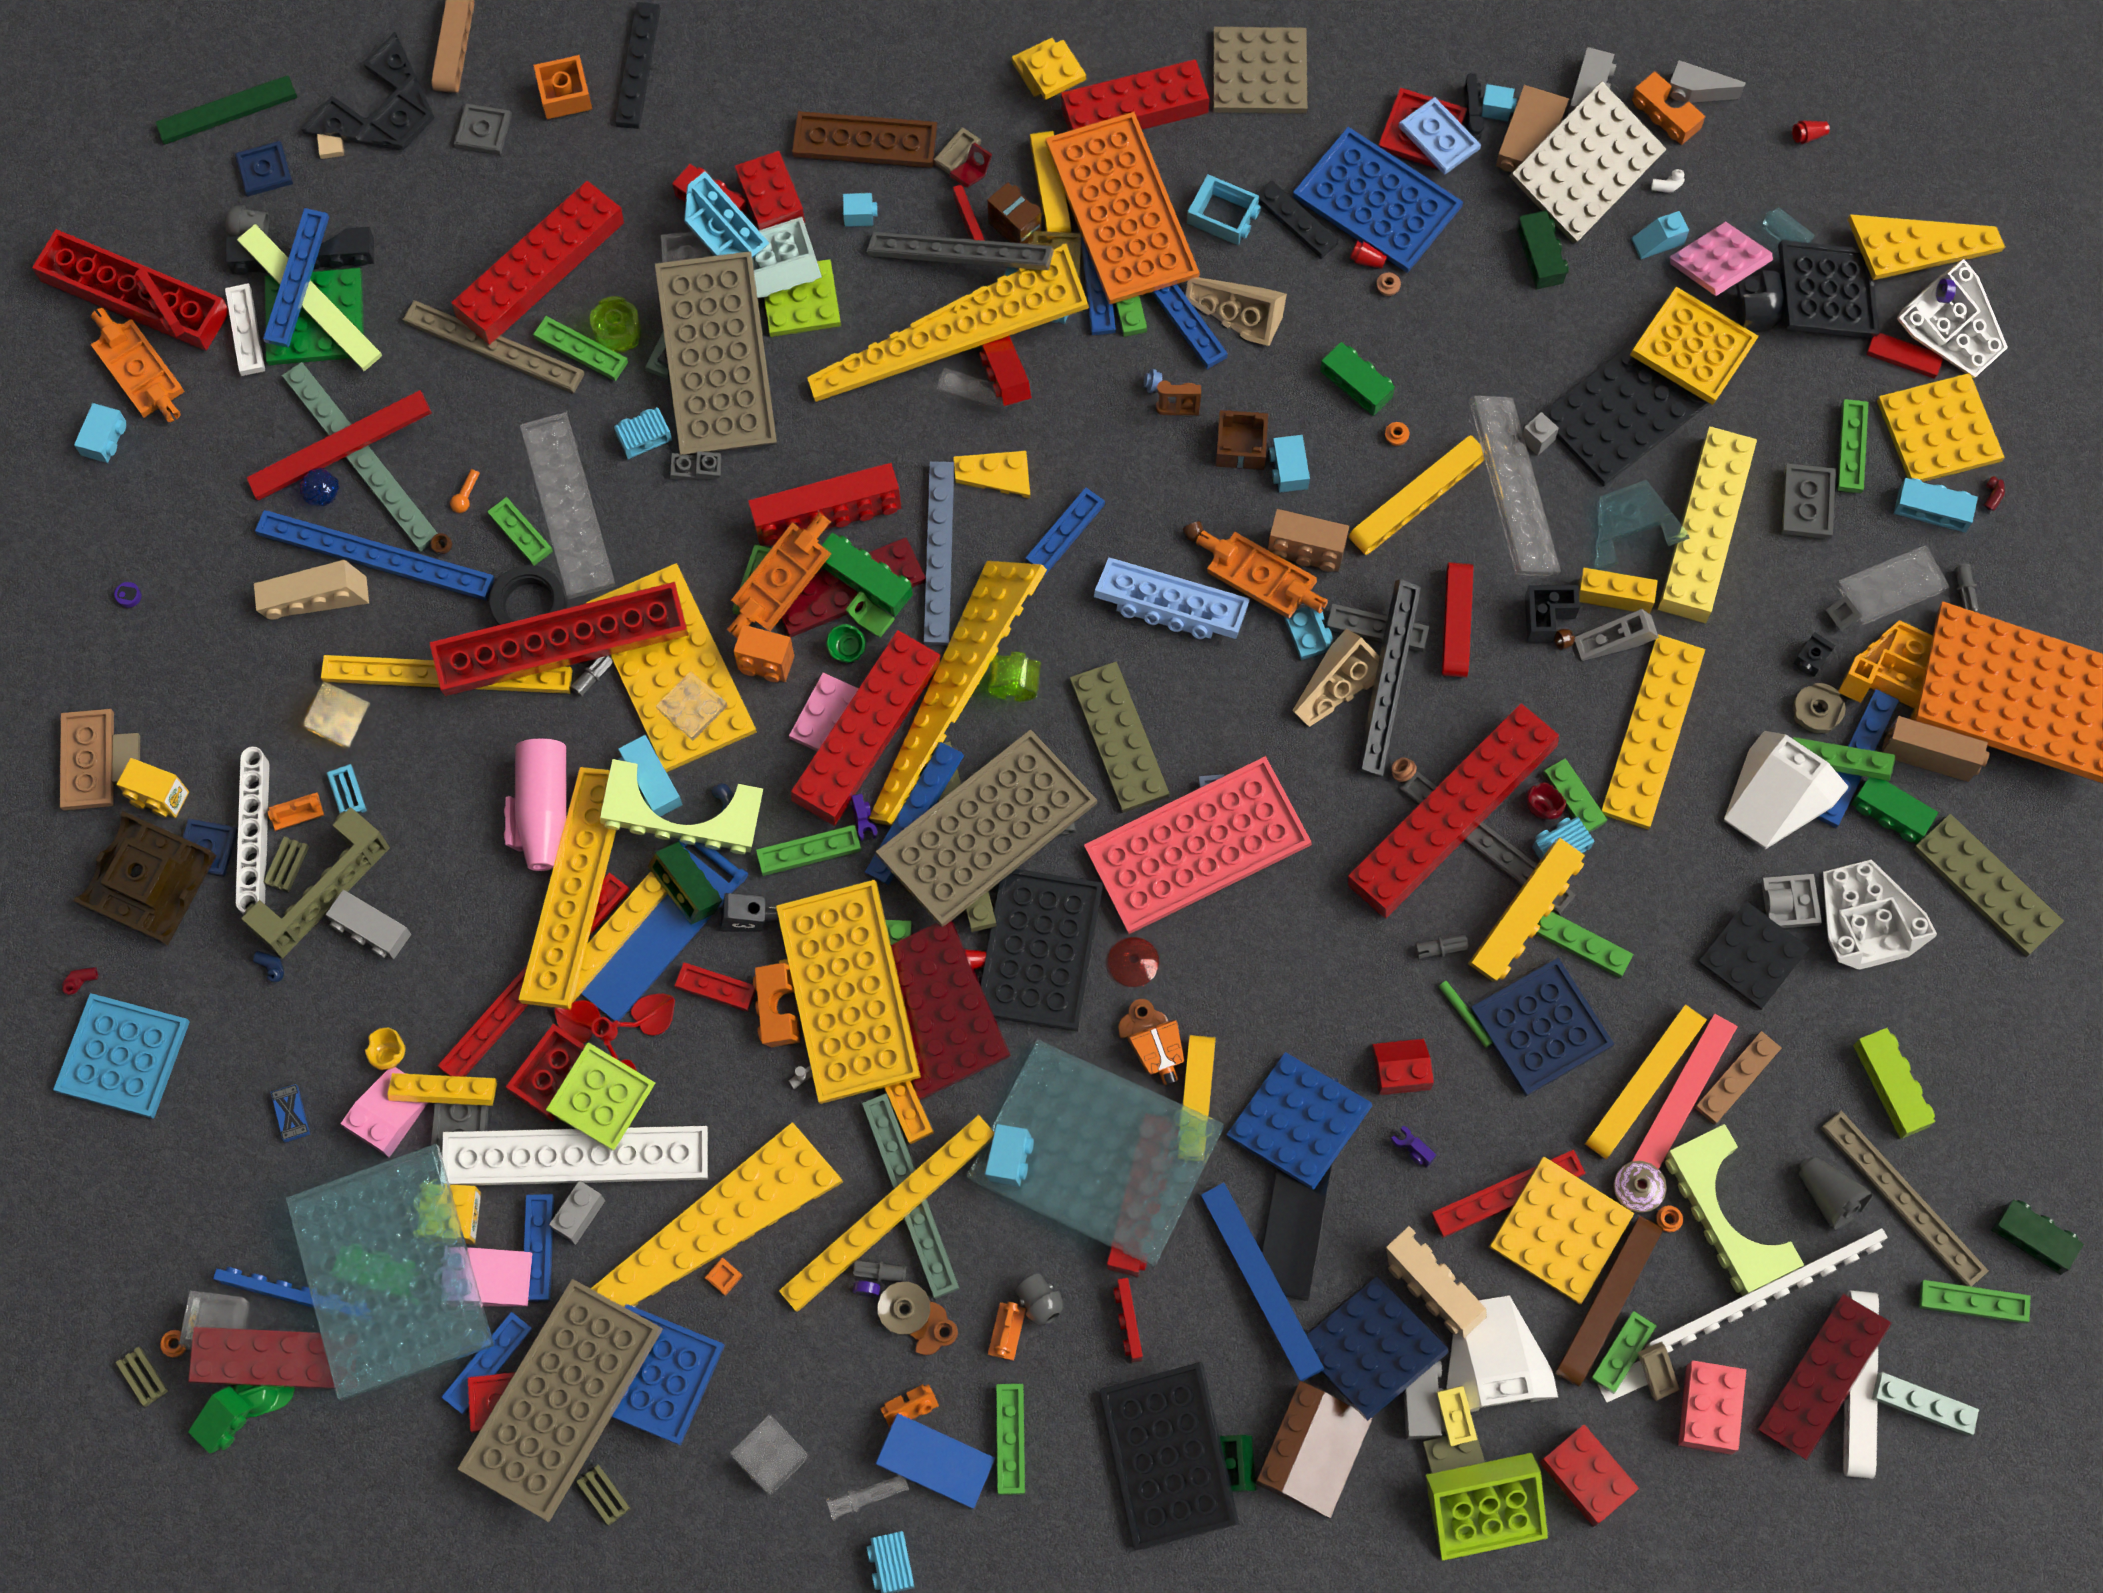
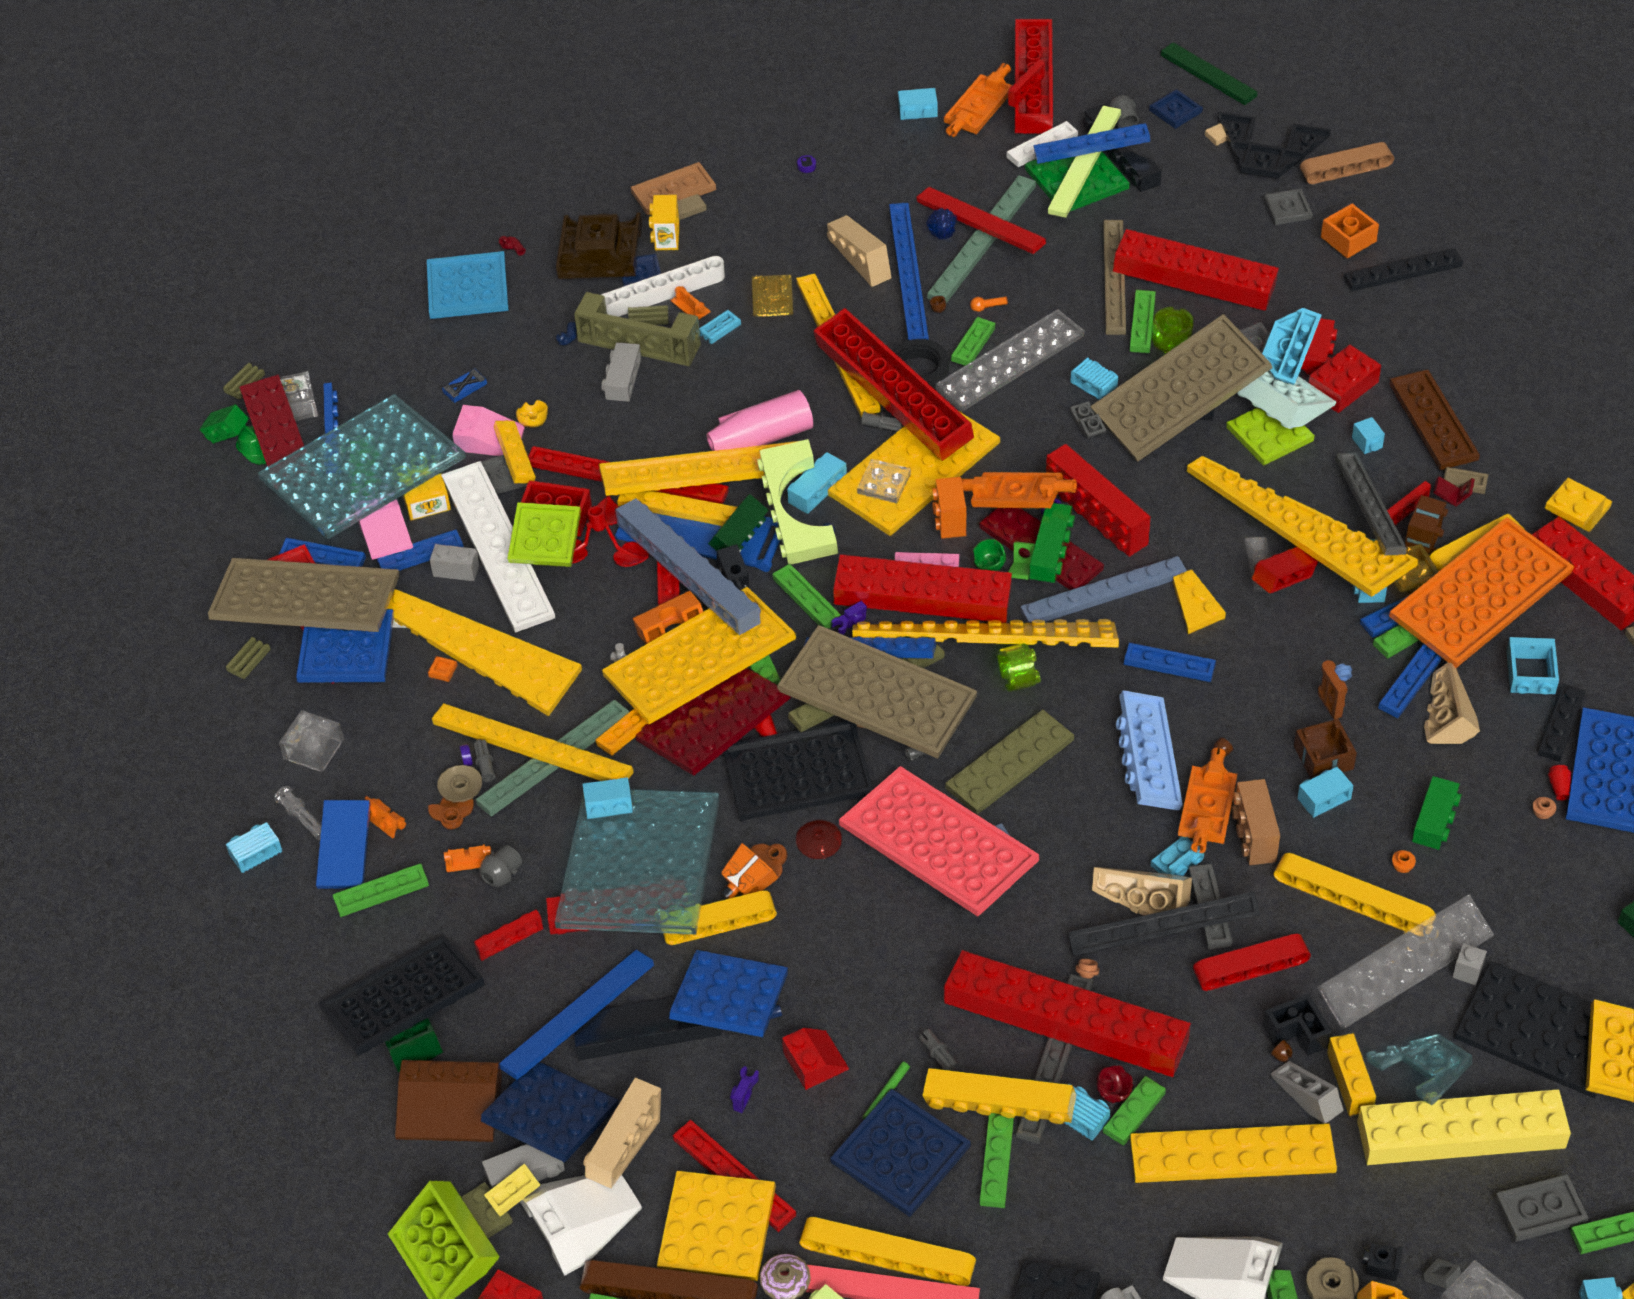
camera: 70 degrees right, 20 degrees down
(718, 957) = (688, 566): none -> sand blue brick

